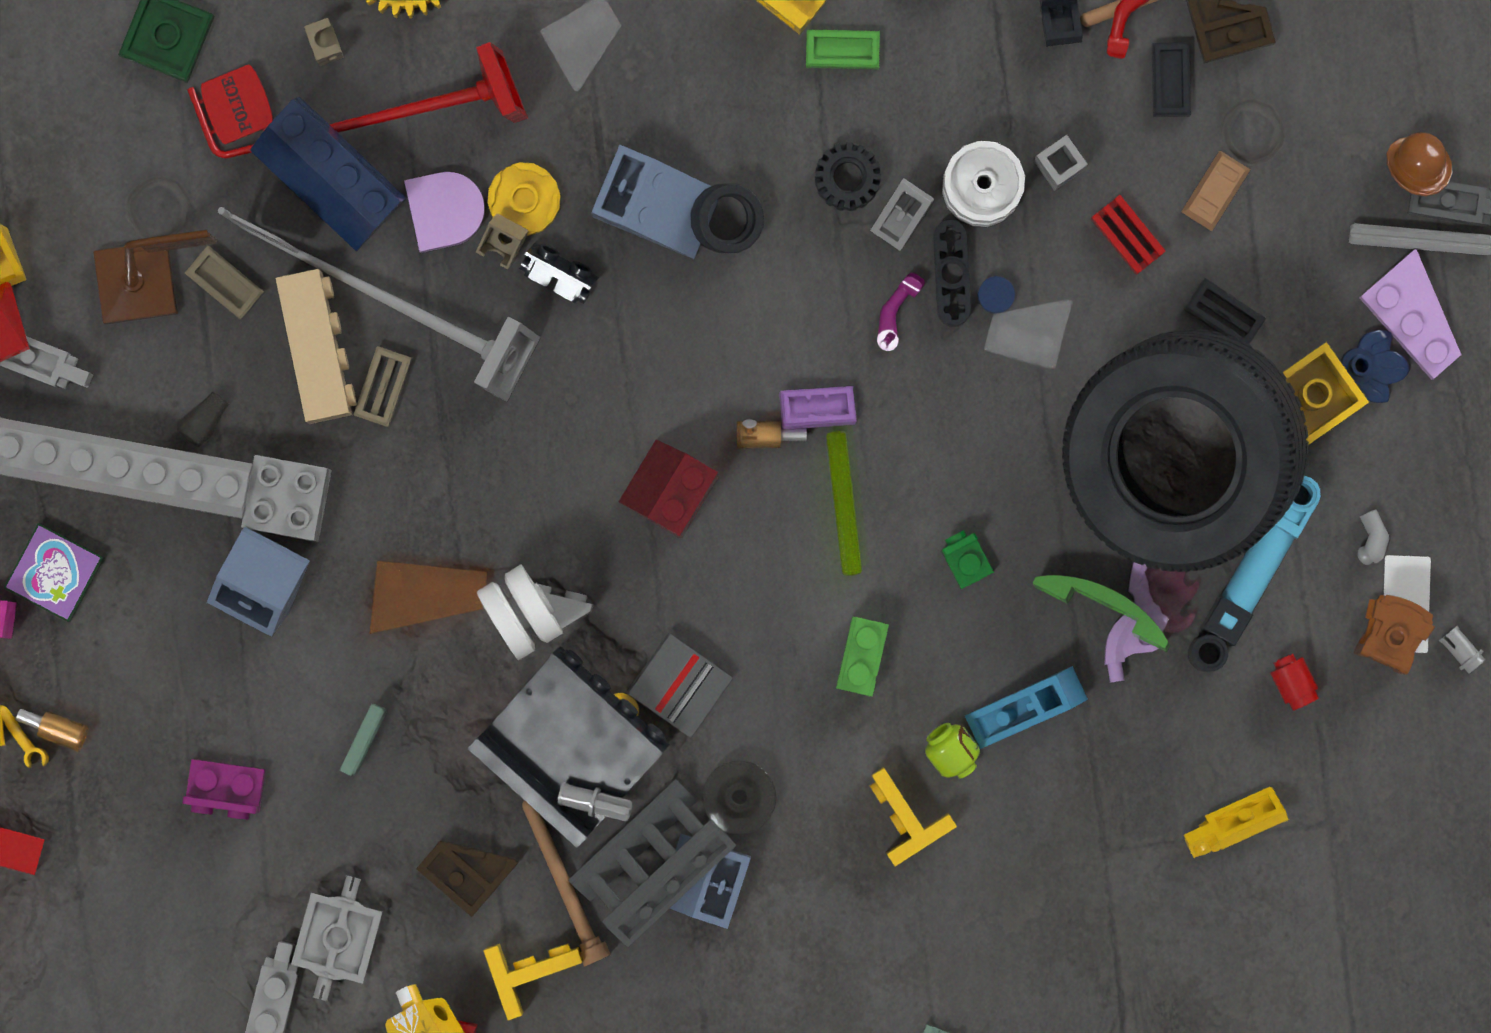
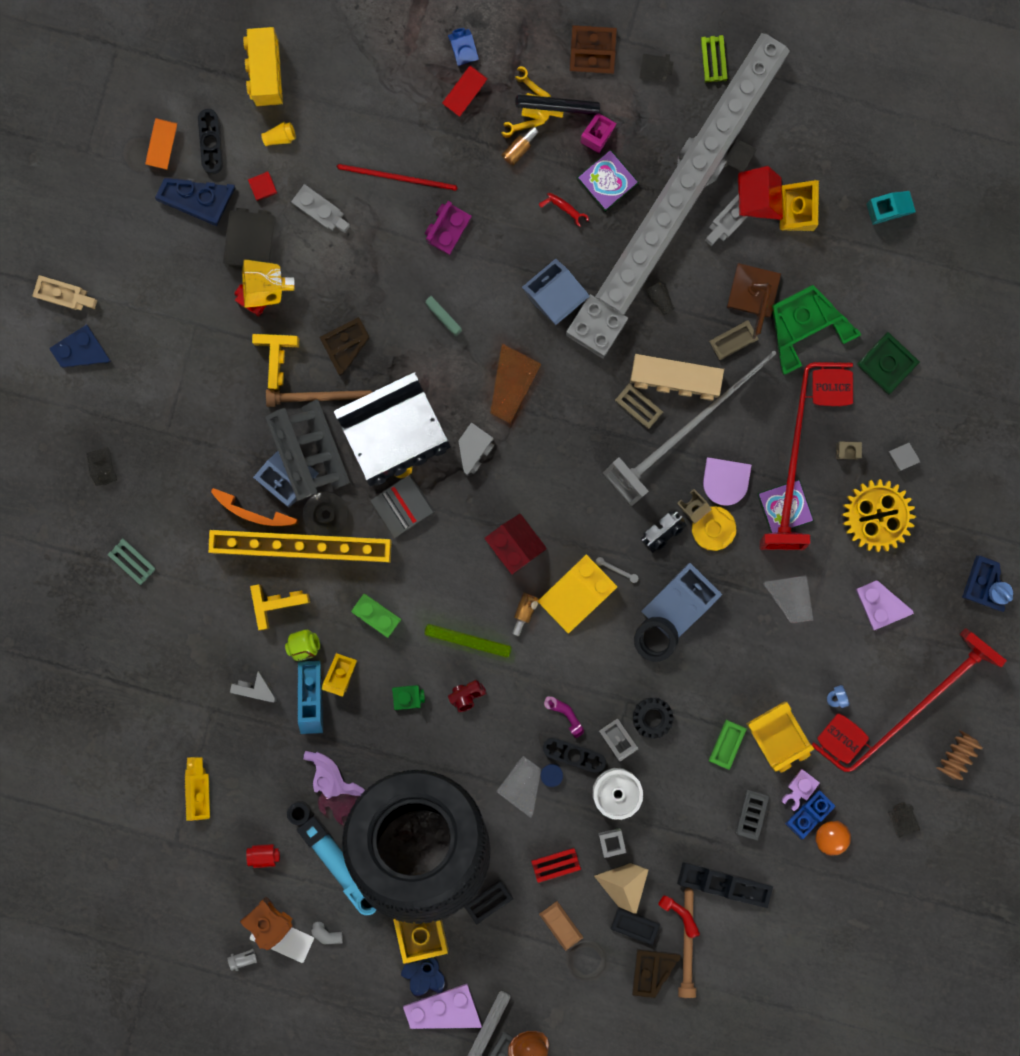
camera: 110 degrees right, 0 degrees up
(120, 621) = (565, 206): none -> red piece
(146, 191) = (803, 316): none -> green wing
(176, 899) = (397, 177): none -> red axle
(327, 173) = (772, 422): dark blue slope -> none
(336, 938) = (338, 257): light grey plate -> none
(452, 124) = (772, 506): none -> tile
(523, 610) = (478, 435): white wheel -> none
(595, 802) = (355, 431): light grey axle -> none
(648, 291) = (633, 578): none -> light grey hinge
(706, 365) = (577, 594): none -> yellow slope
(779, 954) = (228, 501): none -> orange slope
(803, 815) = (300, 546): none -> yellow brick
(817, 407) = (528, 647): medium lavender plate -> none
(931, 475) = (463, 695): none -> dark red plate
(974, 676) = (339, 675): none -> yellow slope
(1048, 785) = (260, 691): none -> light grey slope
(1064, 586) = (369, 746): bright green slope -> none
(1116, 119) = (624, 885): none -> tan slope

